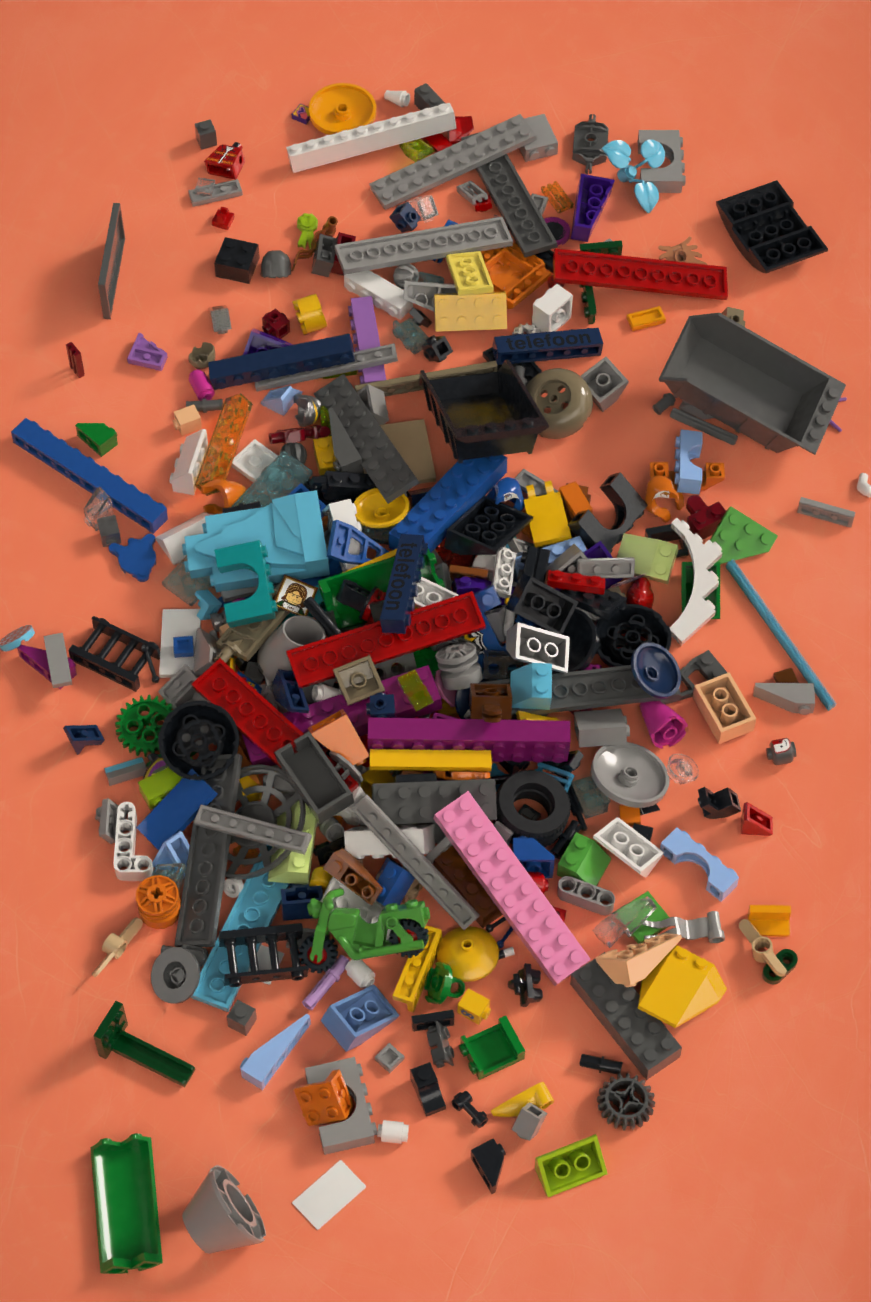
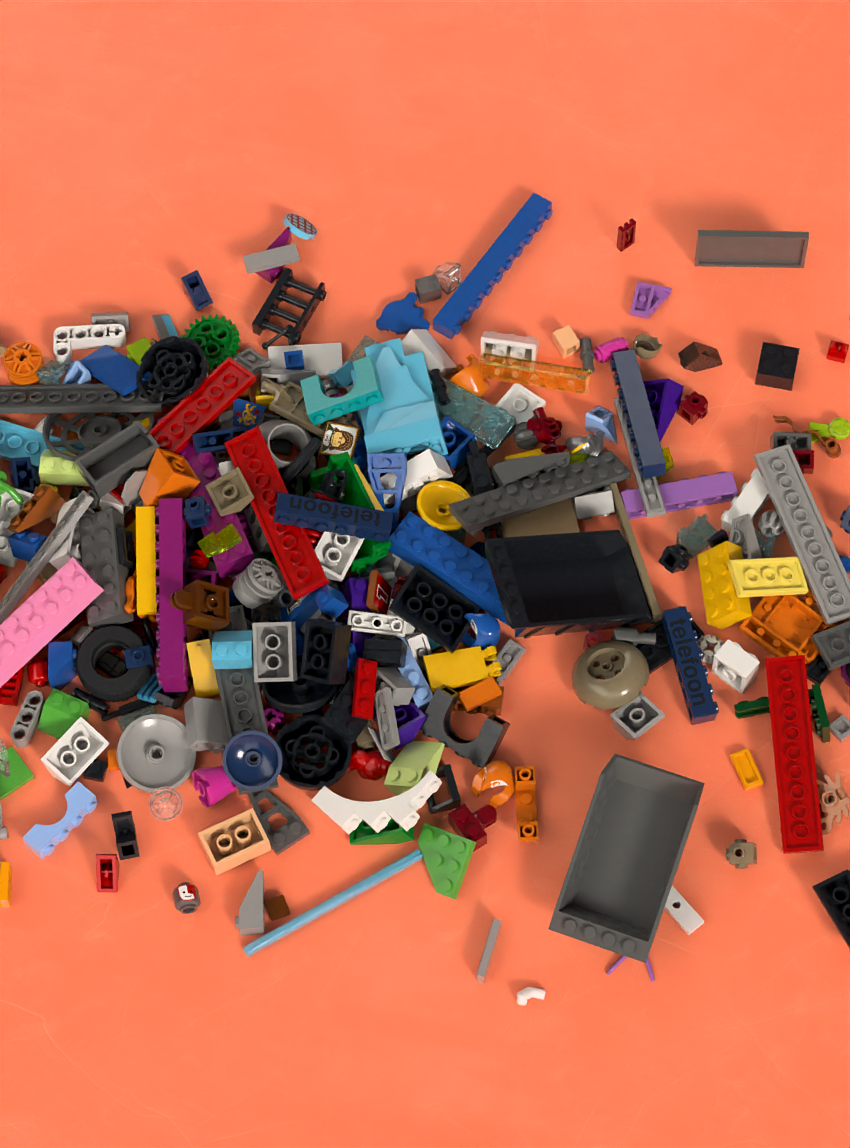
camera: 90 degrees right, 5 degrees up
(97, 436) = (538, 268): green slope -> none
(253, 829) = (80, 423): light grey tile -> none
(275, 264) = (775, 402): dark grey hair -> none
(309, 314) = (708, 436): yellow brick -> none
(534, 775) = (139, 657): none -> dark blue bracket
(688, 475) = (565, 808): light blue arch -> none

